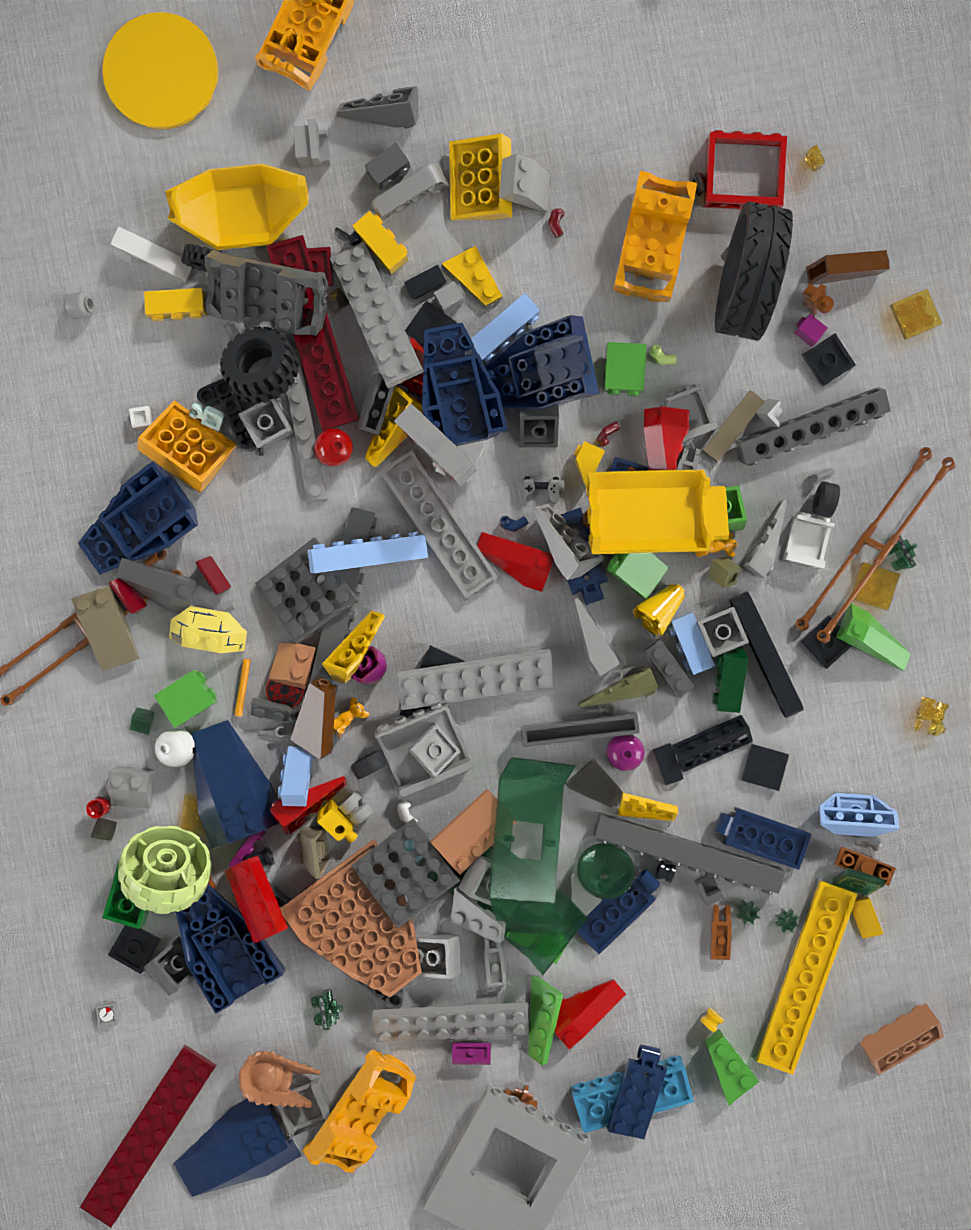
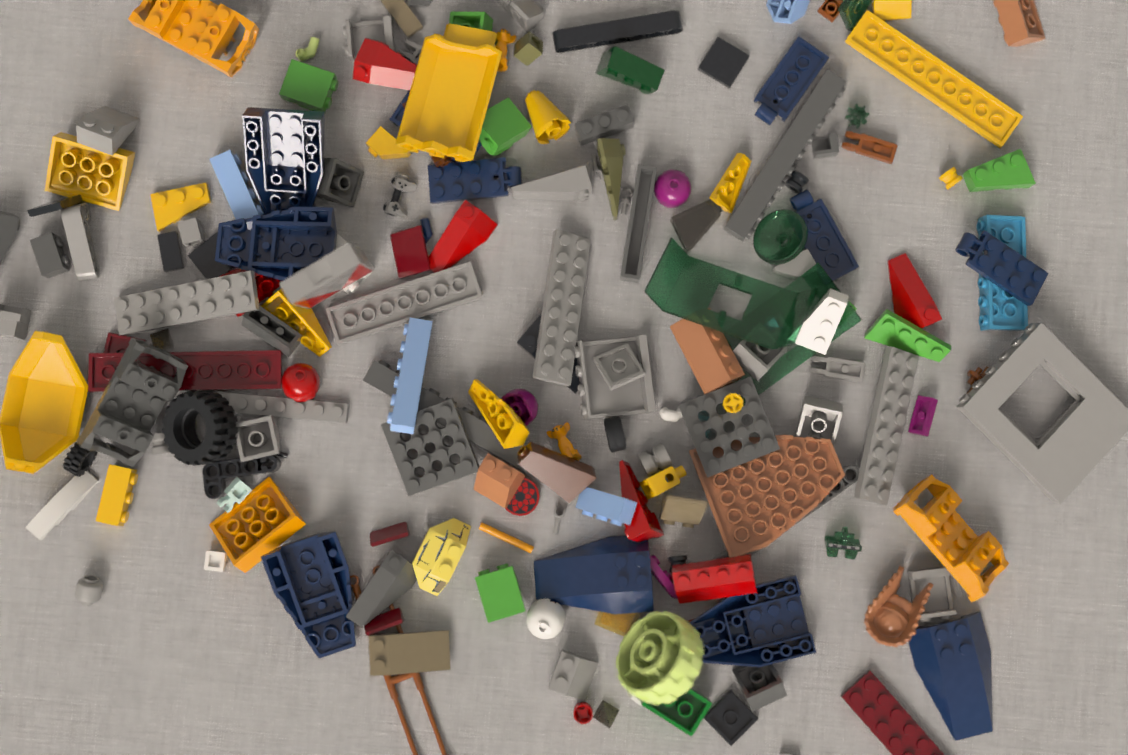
camera: 75 degrees left, 5 degrees down
(142, 720) = (510, 646): clear green slope -> none
(274, 711) = (538, 511): dark grey hinge -> none
(353, 239) = (108, 307): black hand -> none
(381, 242) = (119, 282): yellow brick -> none
(426, 875) = (734, 404): none -> yellow wheel
(435, 156) = (54, 206): none -> black tile
(474, 918) = (791, 373): light grey wing -> none
(490, 515) = (410, 252): none -> dark red piece
(532, 940) = (823, 321): none -> white wedge
(554, 220) = (150, 114): dark red arm -> none
(567, 547) = (466, 184): light grey wedge -> none
(605, 432) = (363, 121): dark red arm -> none
(667, 764) = (695, 152): black tile -> none
(690, 644) = (587, 98): light blue brick -> none
(711, 741) = (683, 104): black fence -> none
(722, 632) = (583, 65): light grey slope -> none
(782, 919) = (878, 77): clear green gear -> none

